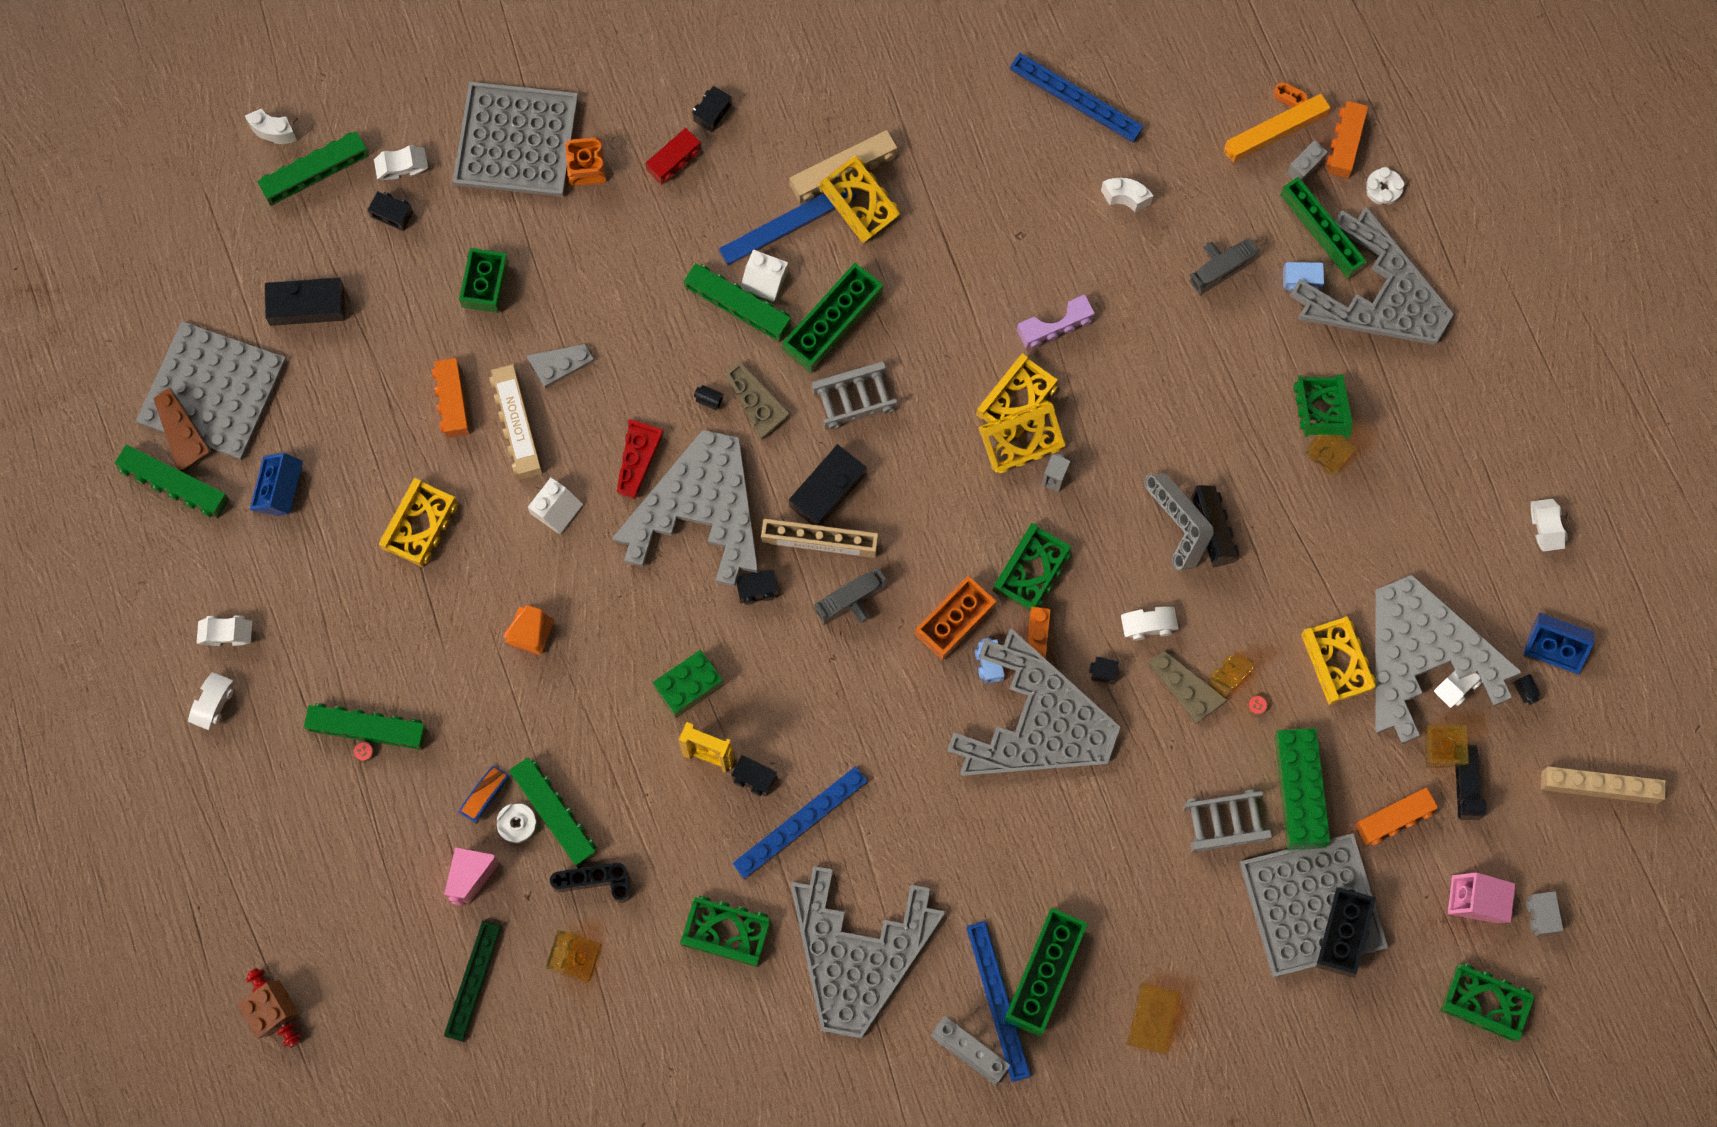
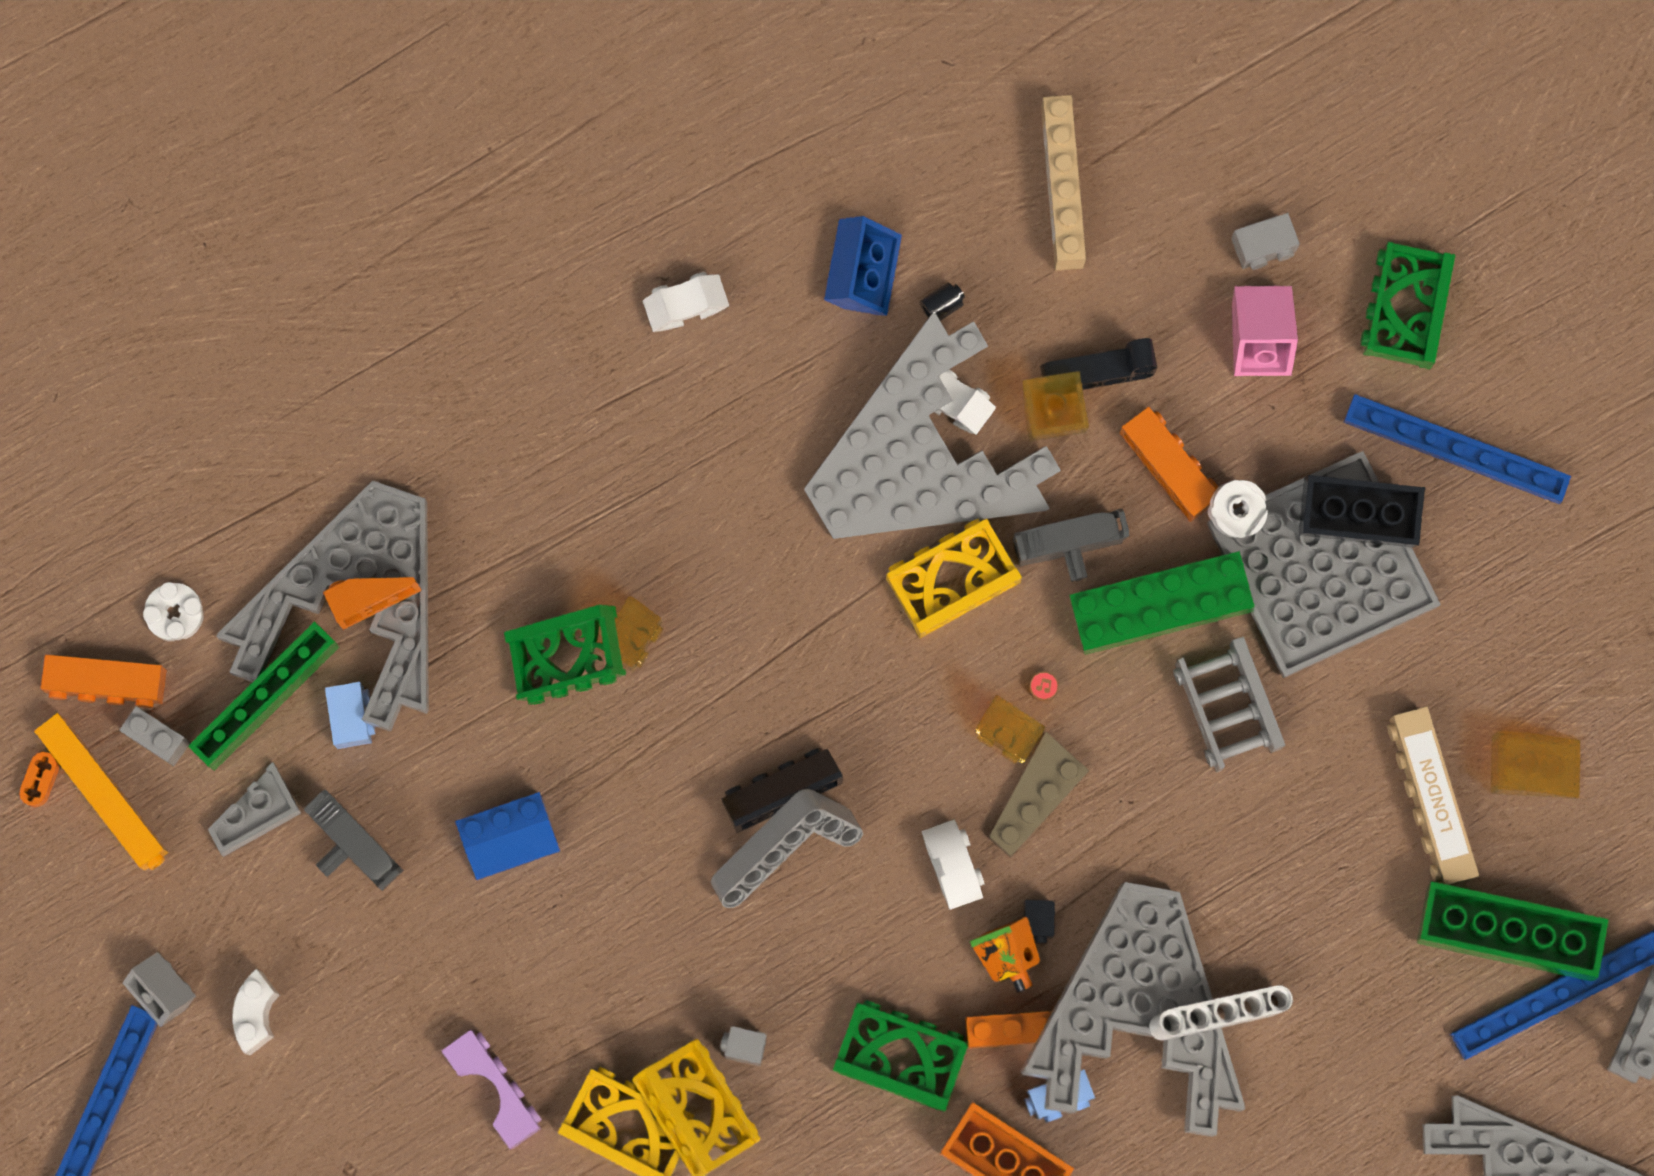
camera: 100 degrees left, 5 degrees up
(1029, 778) = (1209, 1019): none -> white beam
(1086, 644) = (1008, 952): none -> orange torso
(1143, 942) = (1433, 797): none -> brick
(1150, 142) = (159, 989): none -> light grey brick
(1212, 357) = (508, 836): none -> blue slope
(1249, 214) = (255, 813): none -> light grey wing
(1352, 738) = (1070, 540): none -> dark grey piece
(1370, 851) = (1222, 509): none -> white plate
(1376, 288) = (362, 597): none -> orange slope
(1380, 1014) = (1457, 449): none -> blue plate

